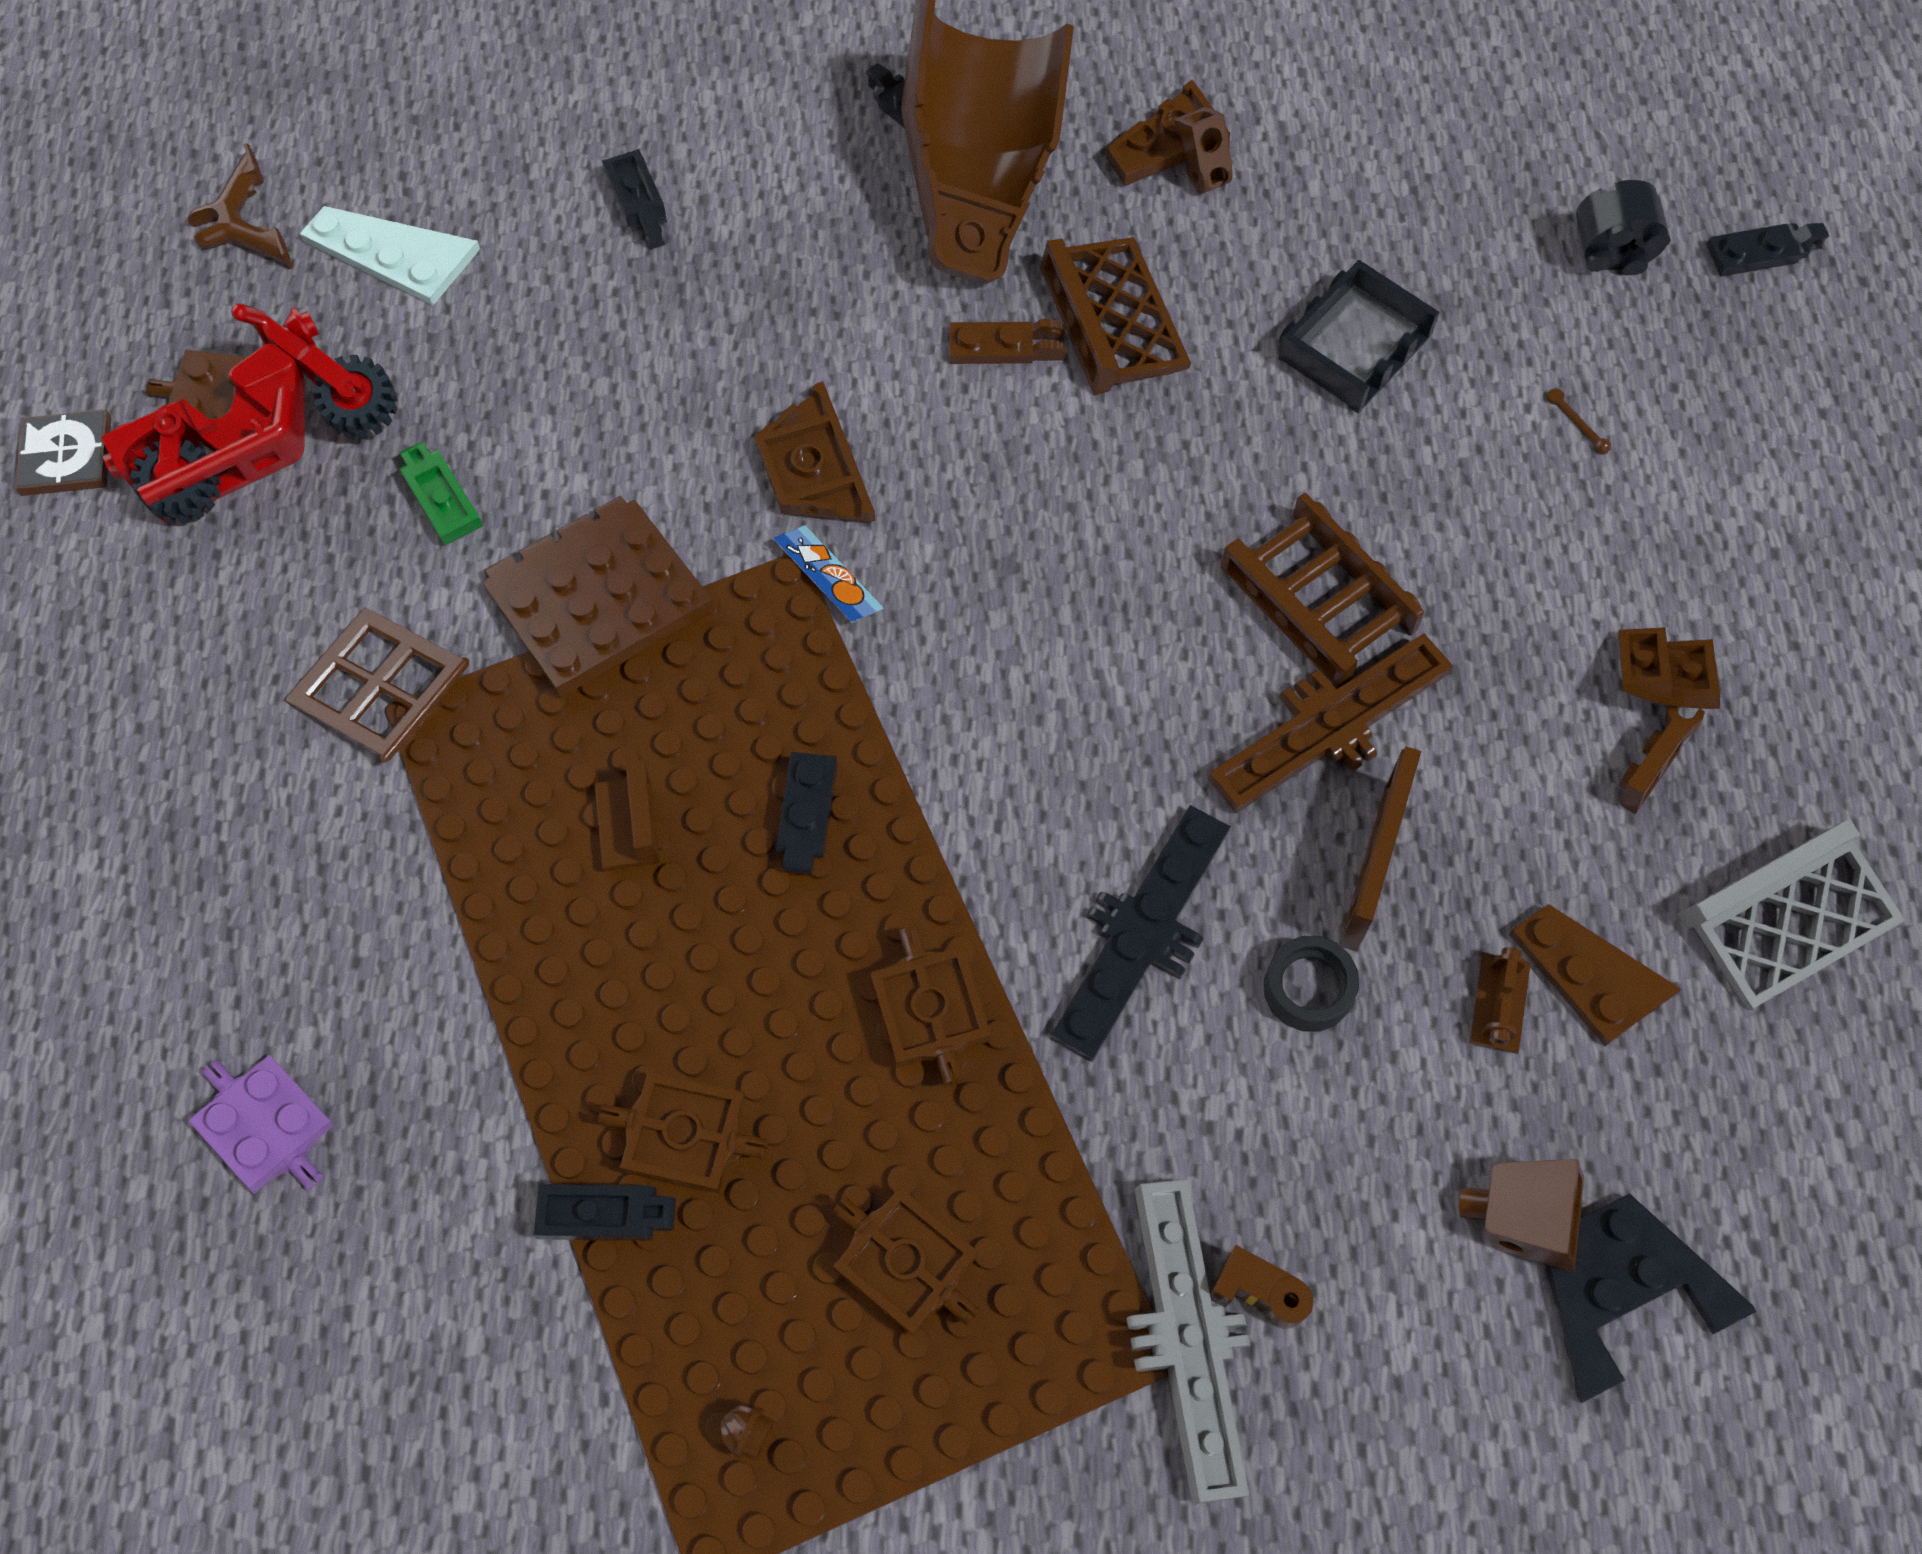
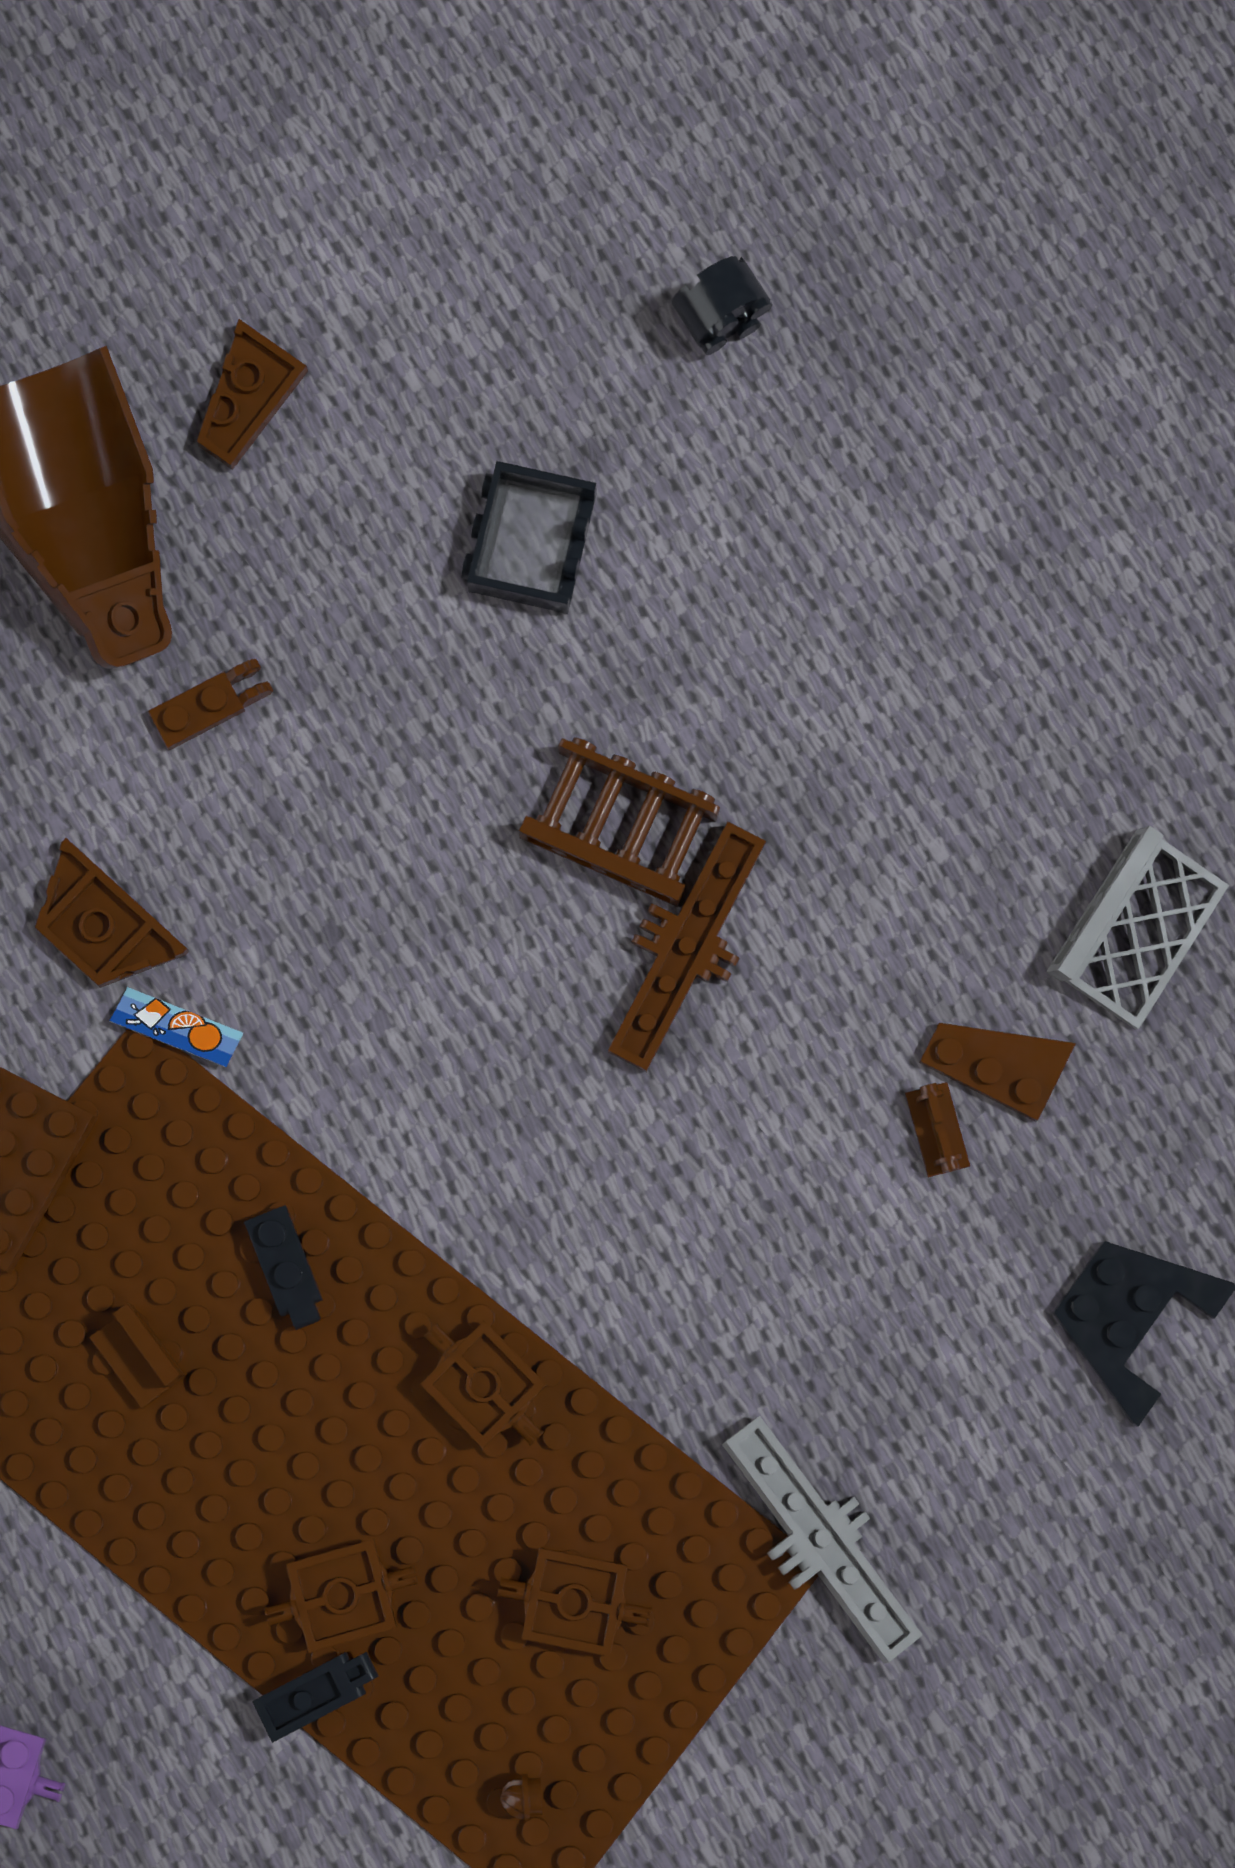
camera: 30 degrees left, 15 degrees up
(1080, 312) = (270, 647): reddish brown fence -> none
(1141, 933) = (620, 1220): black hinge -> none
(1205, 148) = (292, 400): reddish brown leg -> none
(1265, 1286) = (876, 1469): reddish brown leg -> none
(1323, 950) = (812, 1193): black tyre -> none
(1380, 849) = (782, 1053): reddish brown tile -> none
(1531, 1209) = (1035, 1299): reddish brown torso -> none
(1601, 445) = (737, 507): reddish brown hinge -> none
(1660, 752) = (972, 831): reddish brown plate -> none
(1669, 671) = (947, 750): reddish brown slope -> none
(1765, 247) = (857, 246): black hinge -> none

